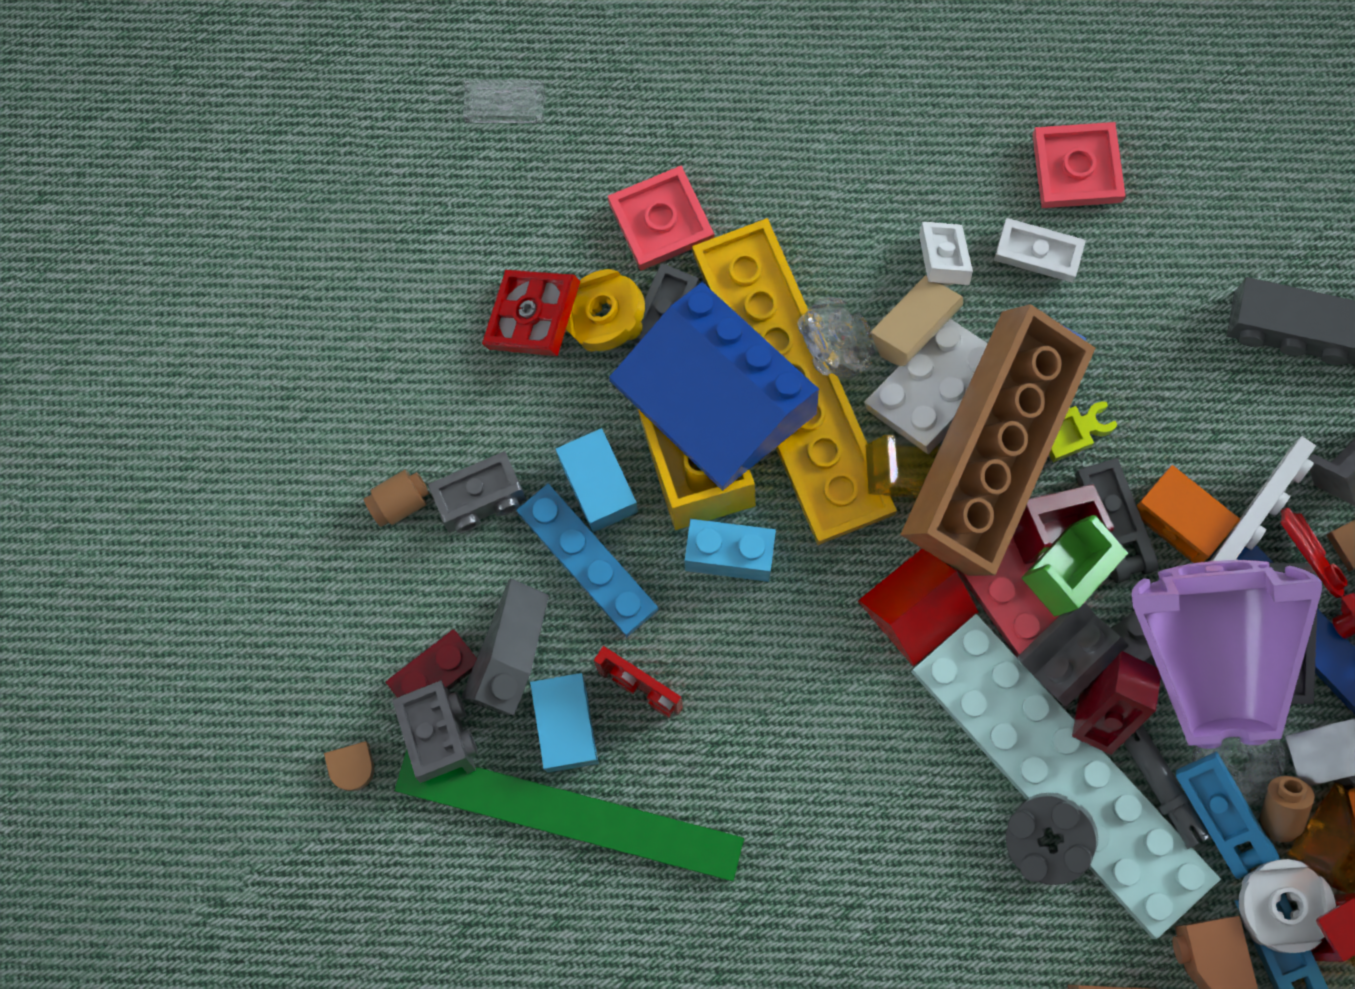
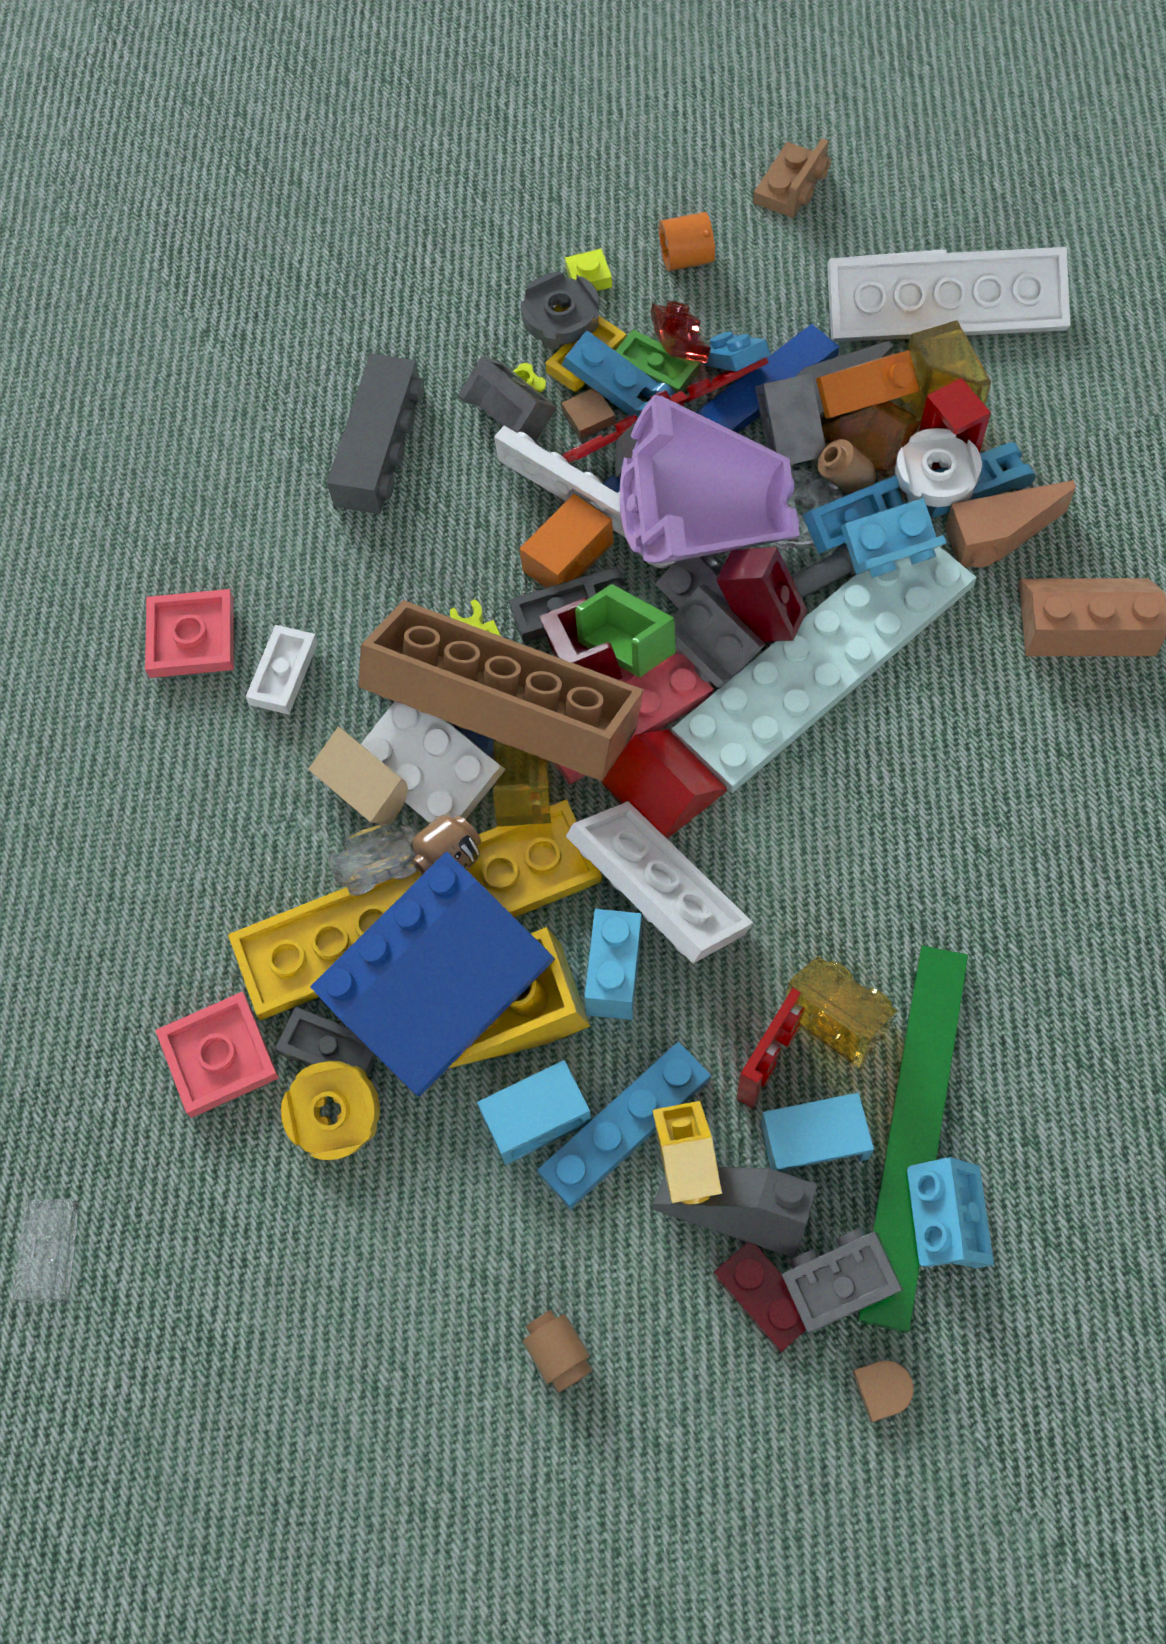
camera: 90 degrees left, 10 degrees down
(477, 493) = (550, 1252): flat silver bracket -> none
(488, 837) = (950, 1213): none -> medium azure bracket
(531, 312) = (329, 1196): red piece -> none
(547, 602) = (687, 1153): none -> yellow slope
(680, 751) = (841, 1009): none -> clear yellow slope
(809, 592) = (659, 881): none -> white plate
(840, 396) = (444, 835): none -> medium nougat head
(945, 253) = (283, 751): white plate -> none
(1037, 860) = (917, 653): dark grey plate -> none
(1190, 846) = (891, 536): none -> medium azure bracket

